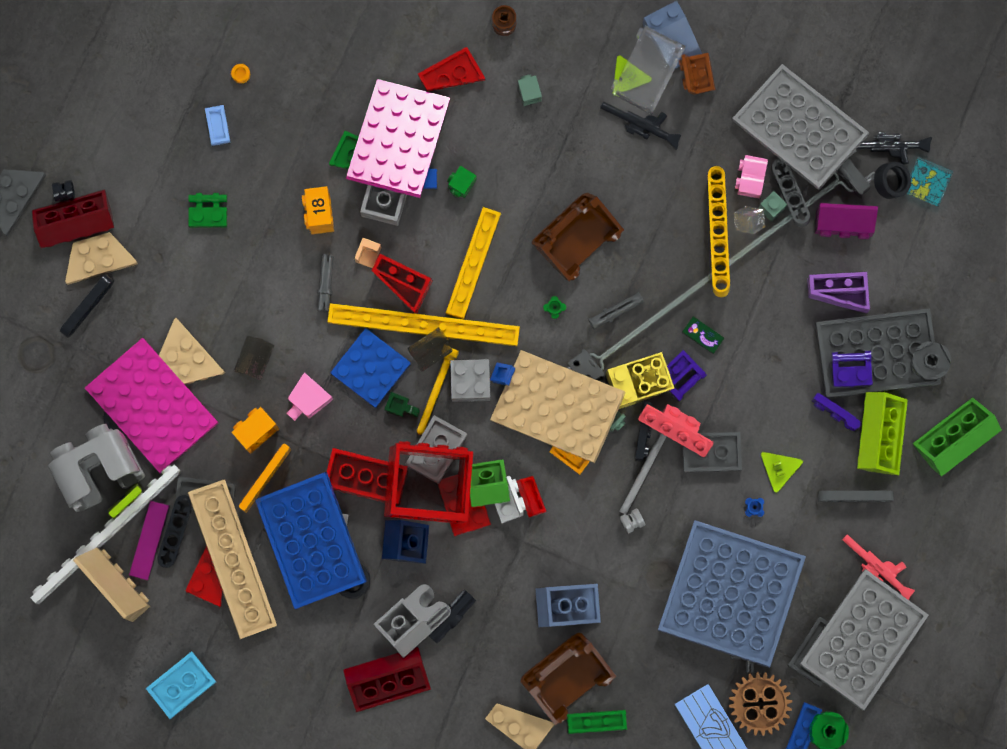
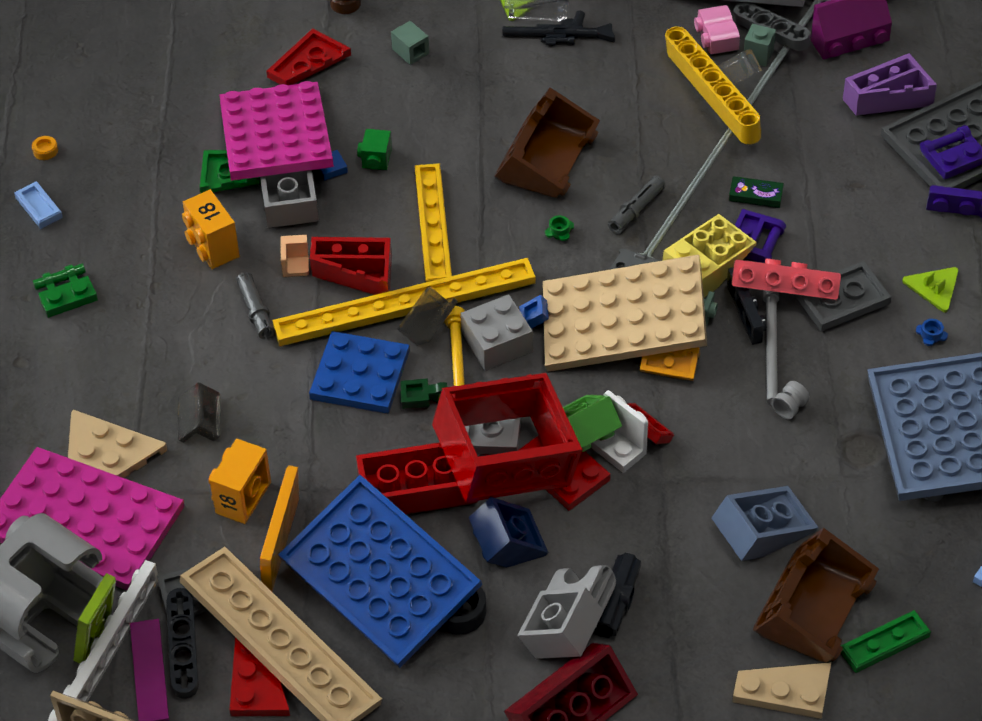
camera: 25 degrees left, 30 degrees down
(307, 398) = (294, 427): bright pink torso -> none

